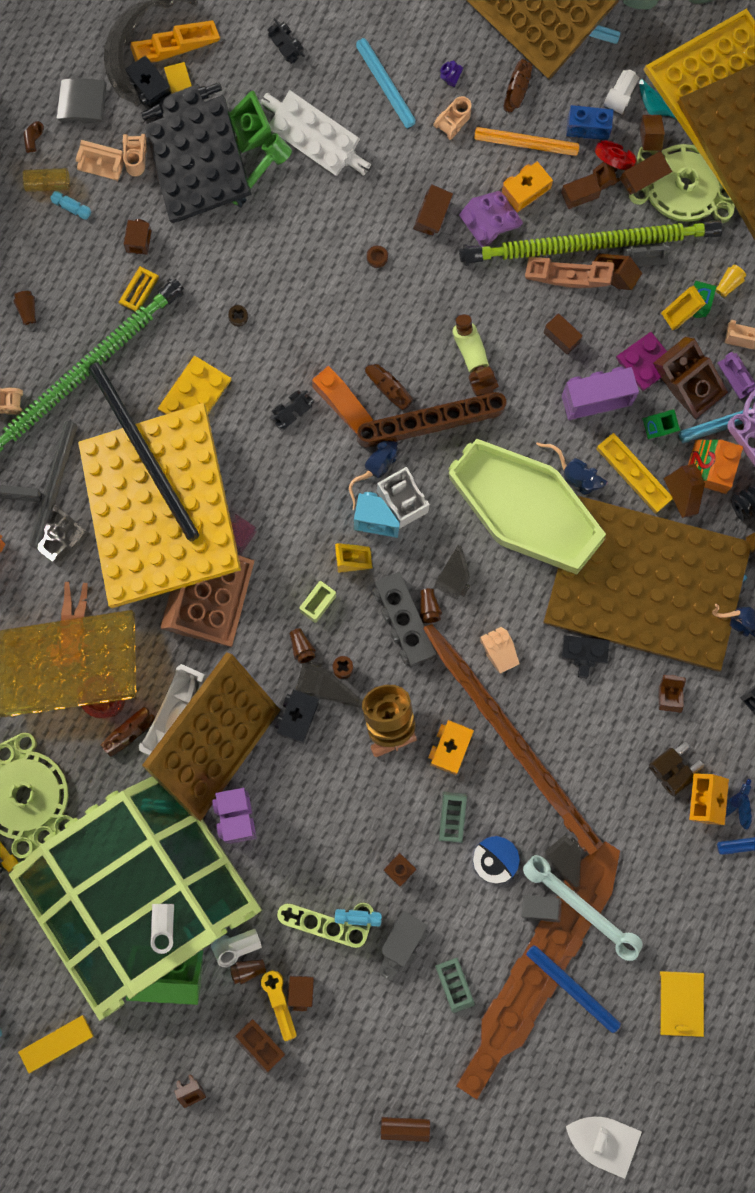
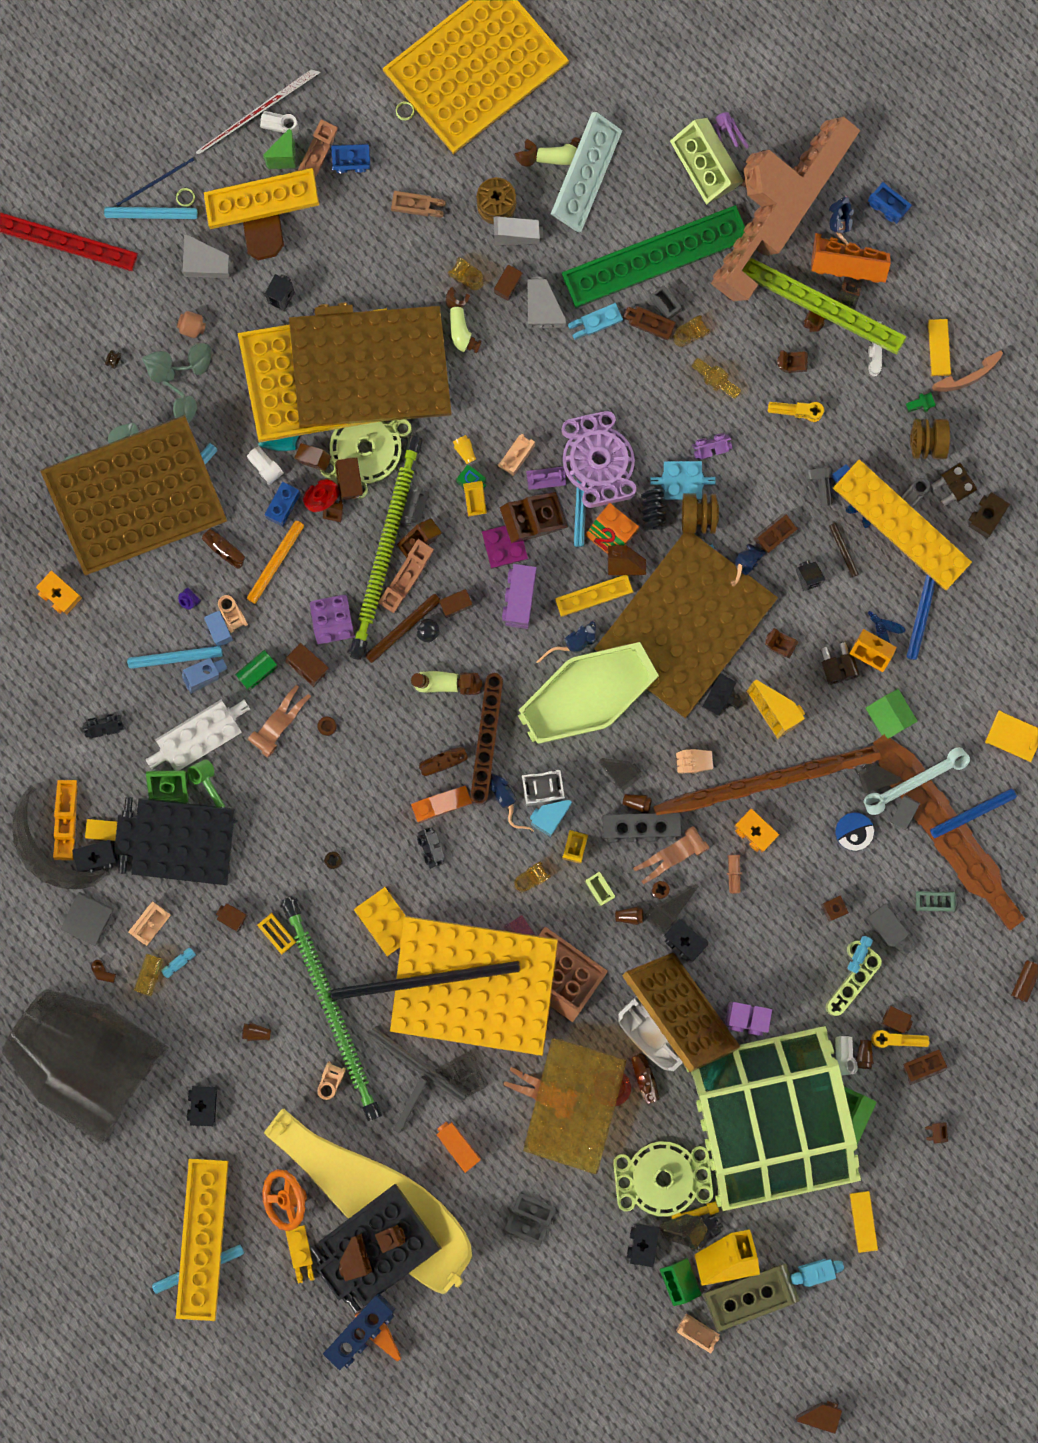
camera: 65 degrees left, 5 degrees up
(134, 151) = (151, 890): light nougat piece -> none
(162, 924) = (815, 1101): white piece -> none
(301, 524) = (532, 877): none -> clear yellow piece
(358, 204) = (276, 724): none -> nougat flag
(378, 110) = (197, 679): none -> medium blue torso
(388, 667) = (675, 853): none -> nougat flag
(389, 715) = (715, 869): pearl gold wheel -> none
(404, 165) = (256, 670): none -> green brick
(430, 110) = (218, 628): none -> medium blue piece
(461, 817) = (794, 844): sand green slope -> none
(512, 291) = (402, 628): none -> reddish brown axle
(521, 196) = (323, 588): light orange brick -> none
(521, 316) = (428, 630): none -> black piece
(581, 191) = (338, 536): reddish brown piece -> none
(594, 718) = (778, 711): none -> yellow slope
(646, 850) = (891, 714): none -> bright green slope
(661, 424) = (564, 558): green brick -> none

